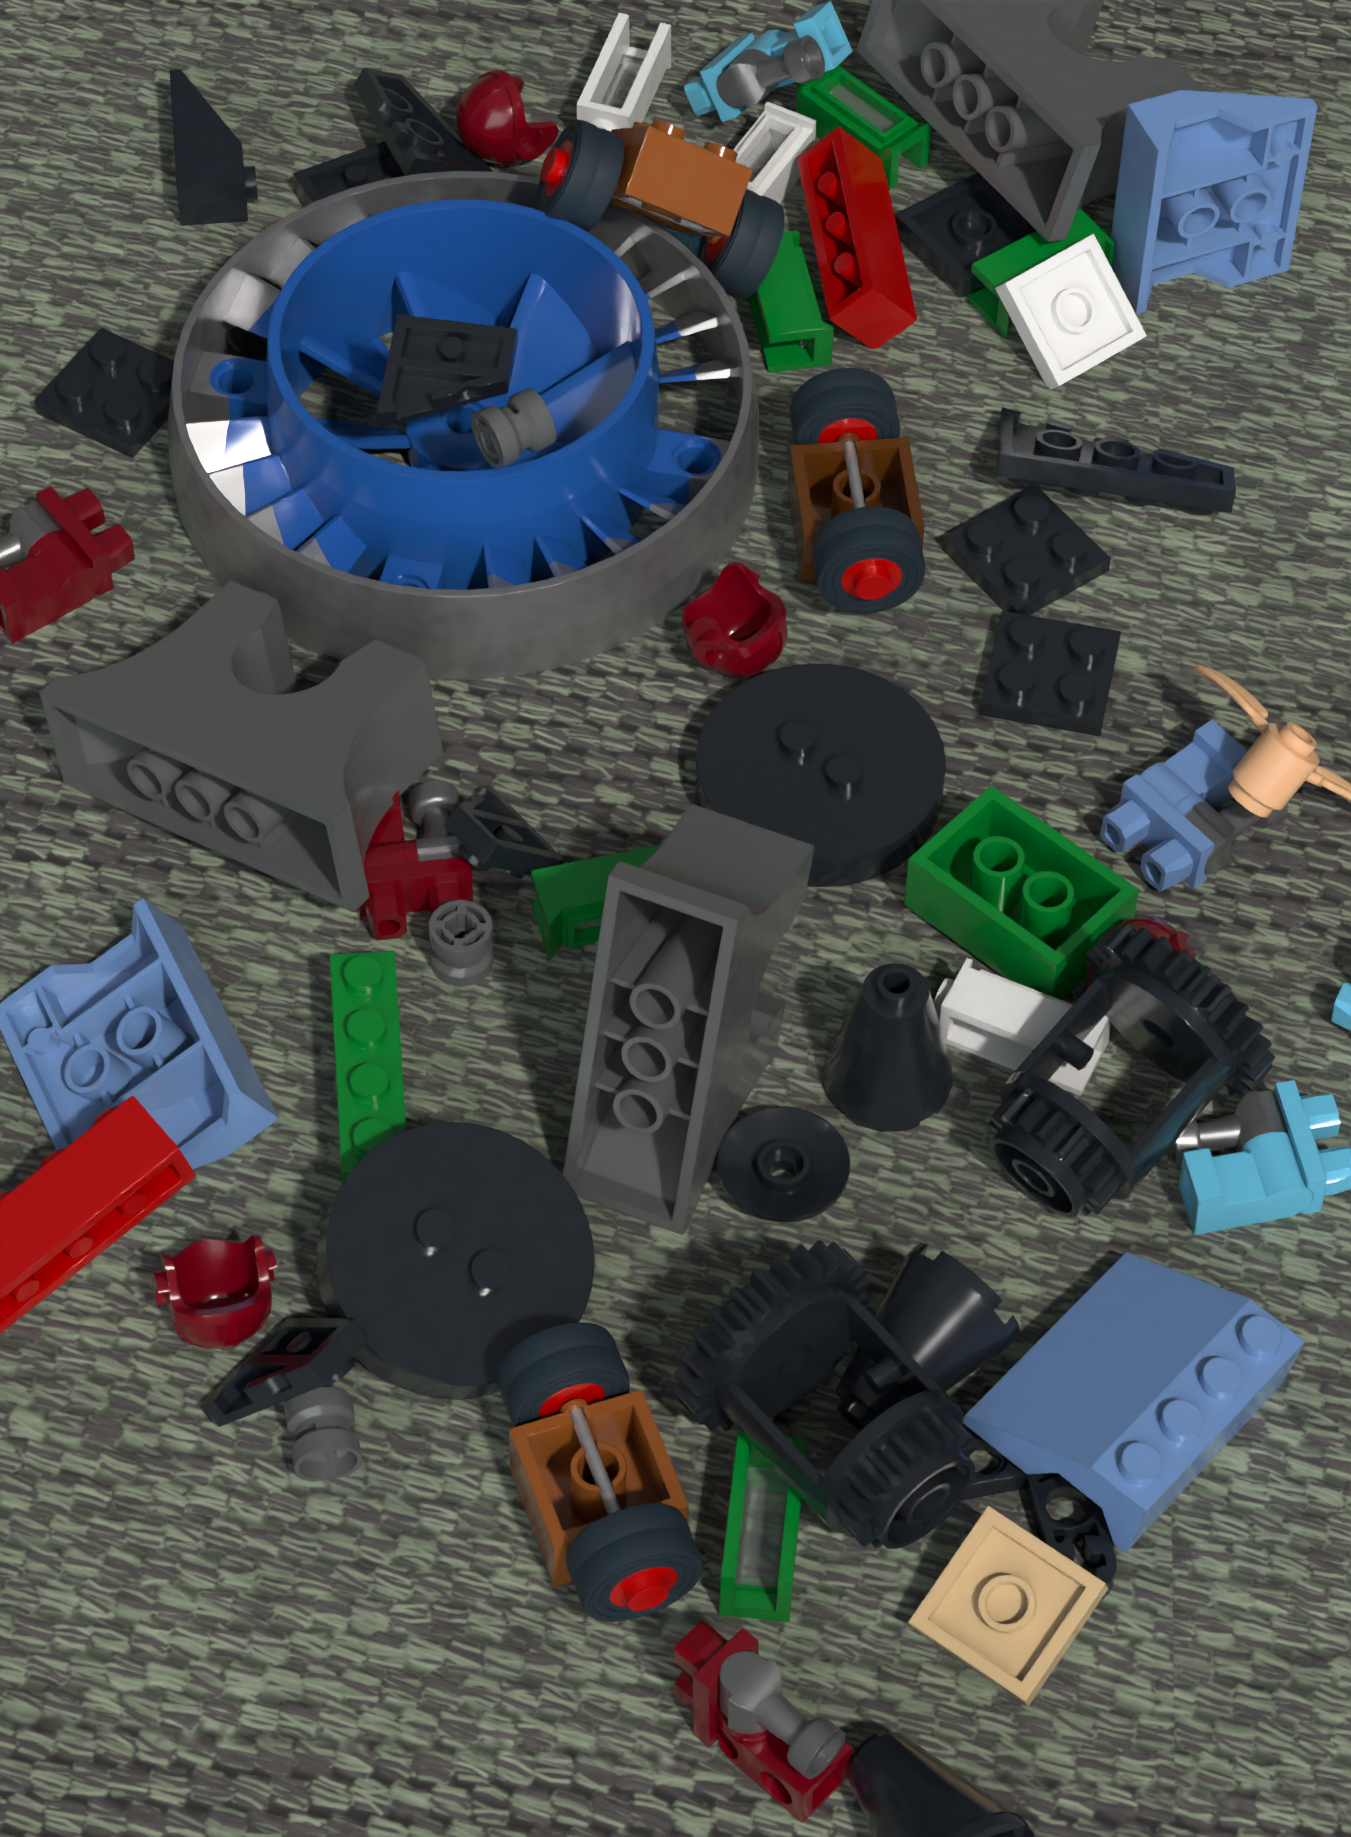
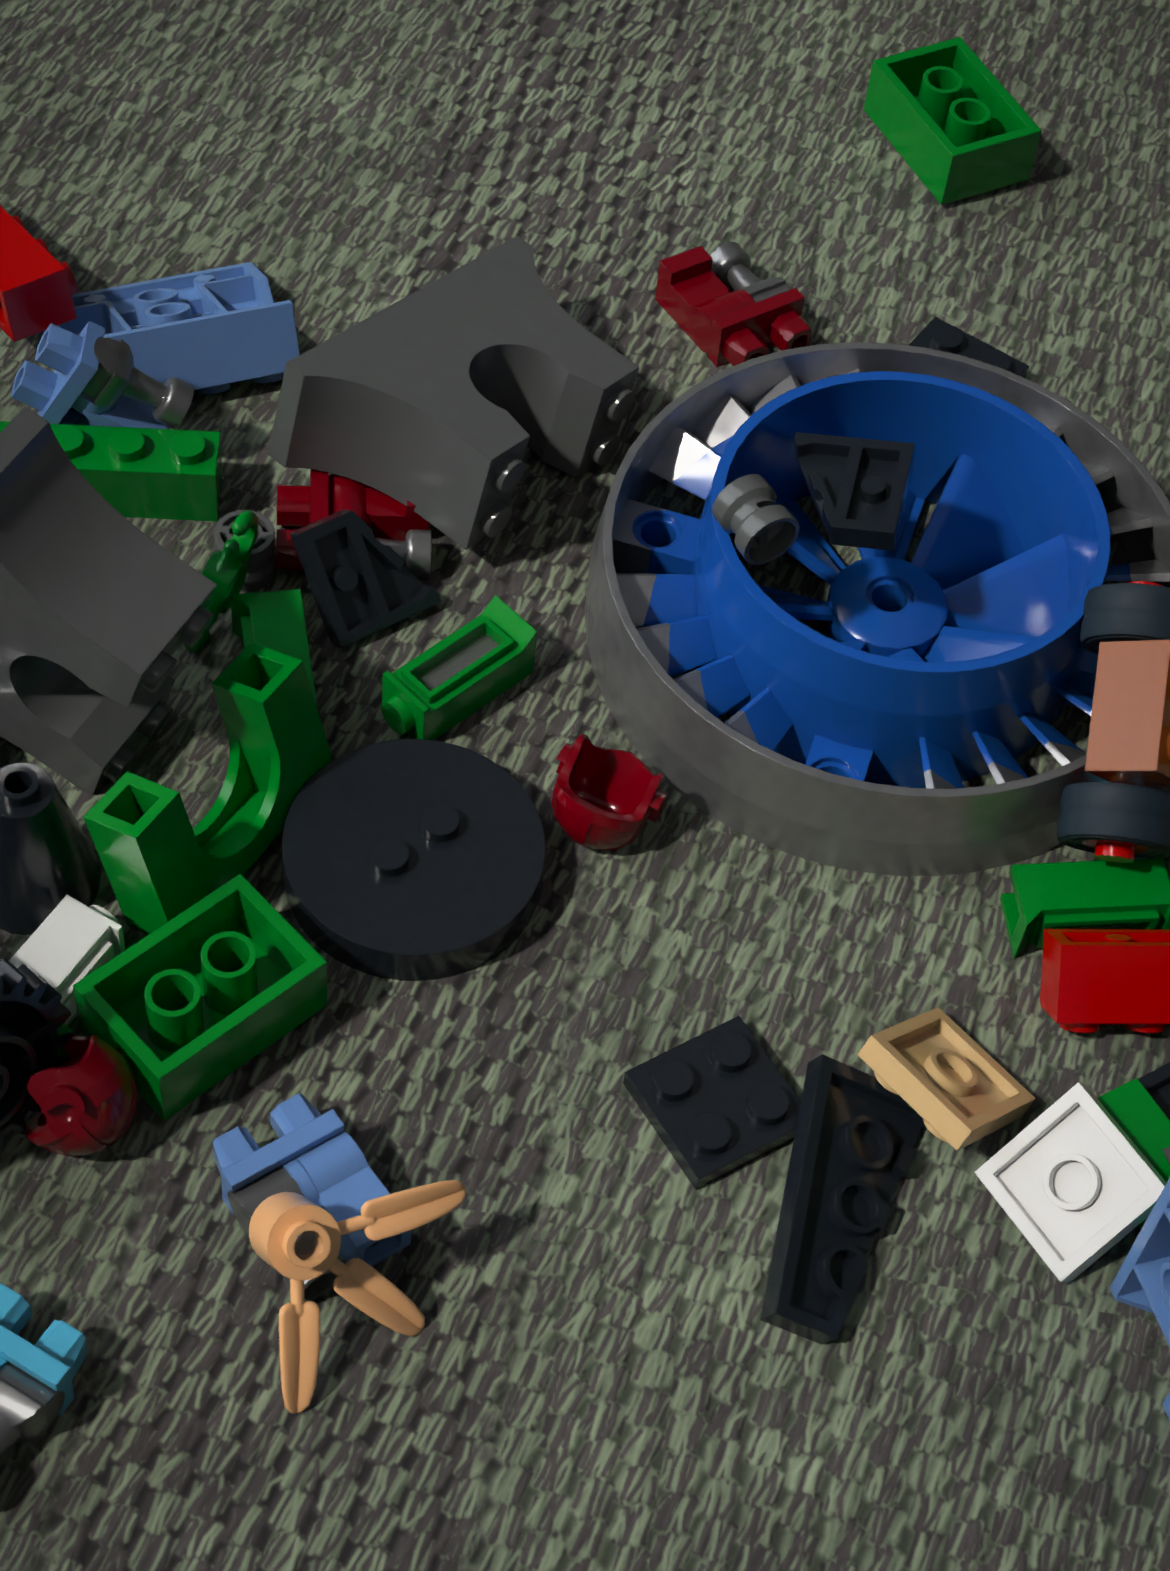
camera: 90 degrees right, 0 degrees up
(300, 1054) = (97, 384): none -> medium blue hips
(504, 924) = (229, 569): none -> green piece
(595, 755) = (459, 673): none -> green window
(854, 493) = (765, 911): brick -> none
(897, 921) = (275, 748): none -> green arch
(989, 389) = (945, 1078): none -> tan plate
(1050, 673) = (538, 1100): black plate -> none

